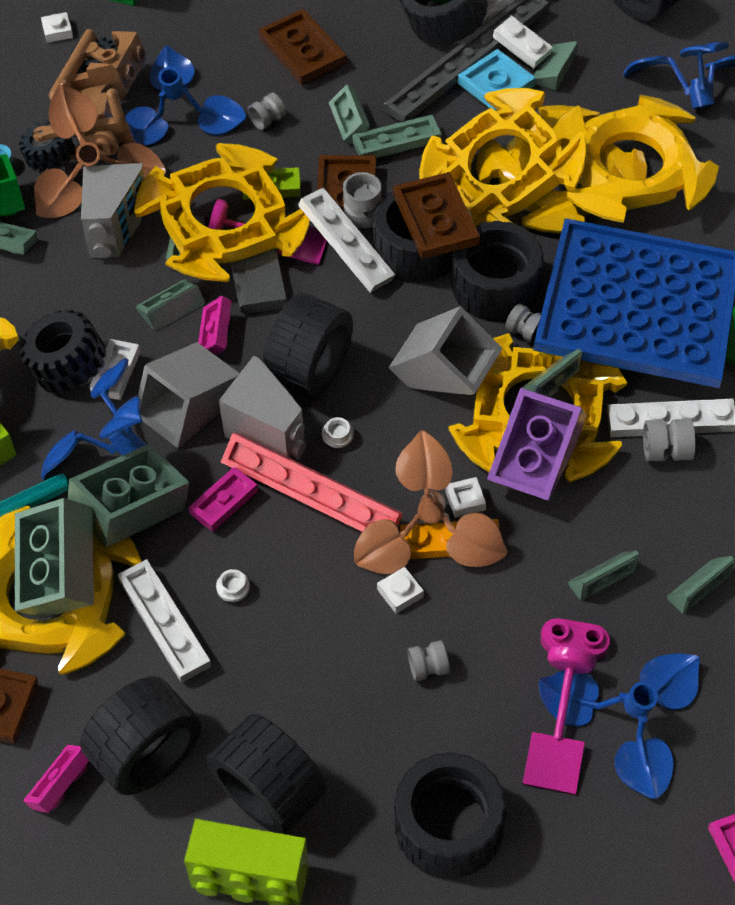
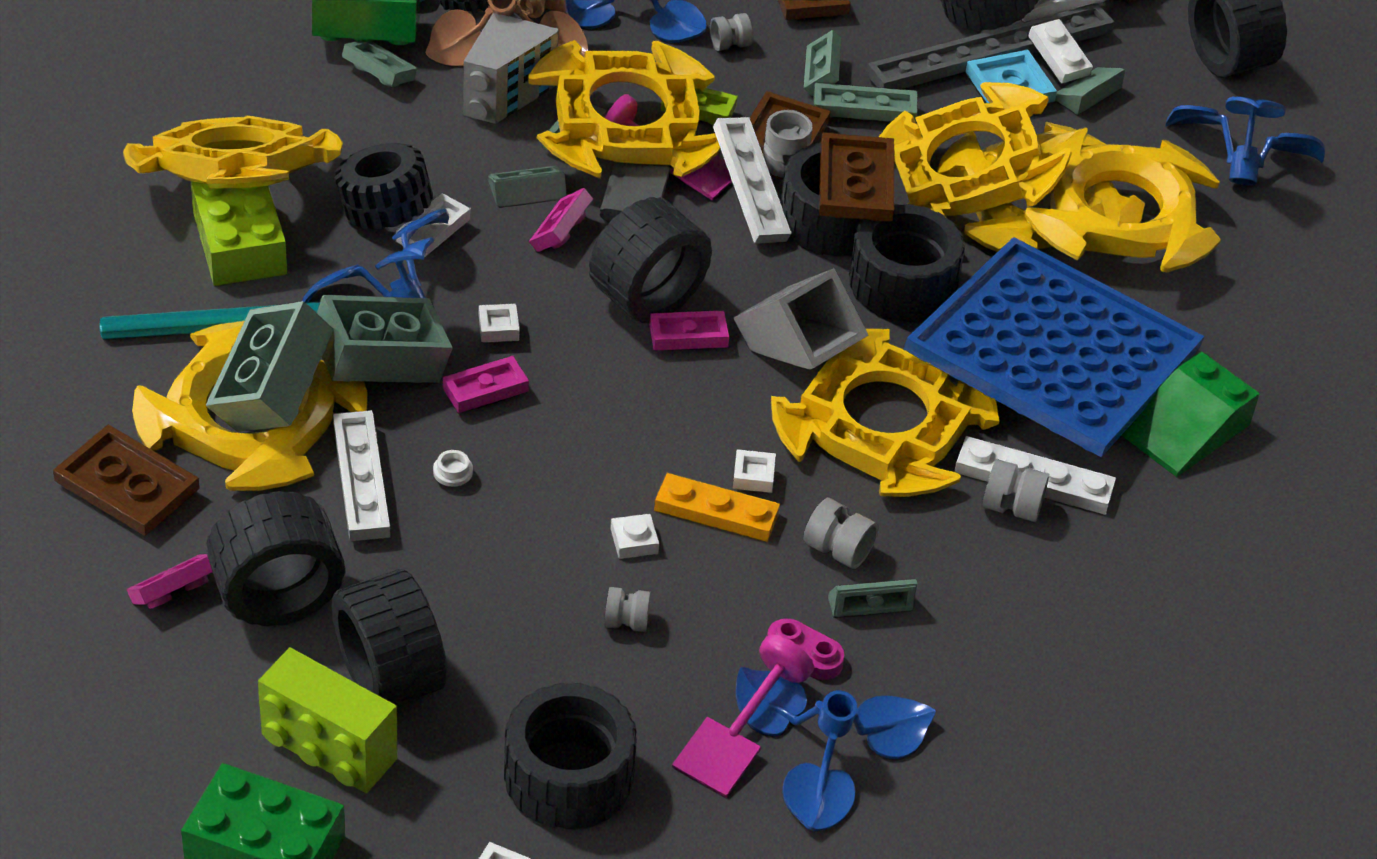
camera: 15 degrees right, 10 degrees down
(183, 392) = (496, 265): light grey slope -> none
(207, 439) = (498, 323): none -> white plate
(263, 411) = (566, 314): light grey slope -> none
(305, 484) = (588, 405): coral plate -> none
(337, 433) = (645, 363): white plate -> none
(357, 390) = (689, 330): none -> dark pink plate
(427, 466) = (740, 509): nougat plant -> none
(523, 322) = (906, 319): light grey wheel -> none
(537, 444) = (857, 436): medium lavender slope -> none
(556, 374) = (912, 381): sand green slope -> none
(558, 528) = (837, 531): none -> light grey wheel
(701, 583) = (980, 645): sand green slope -> none

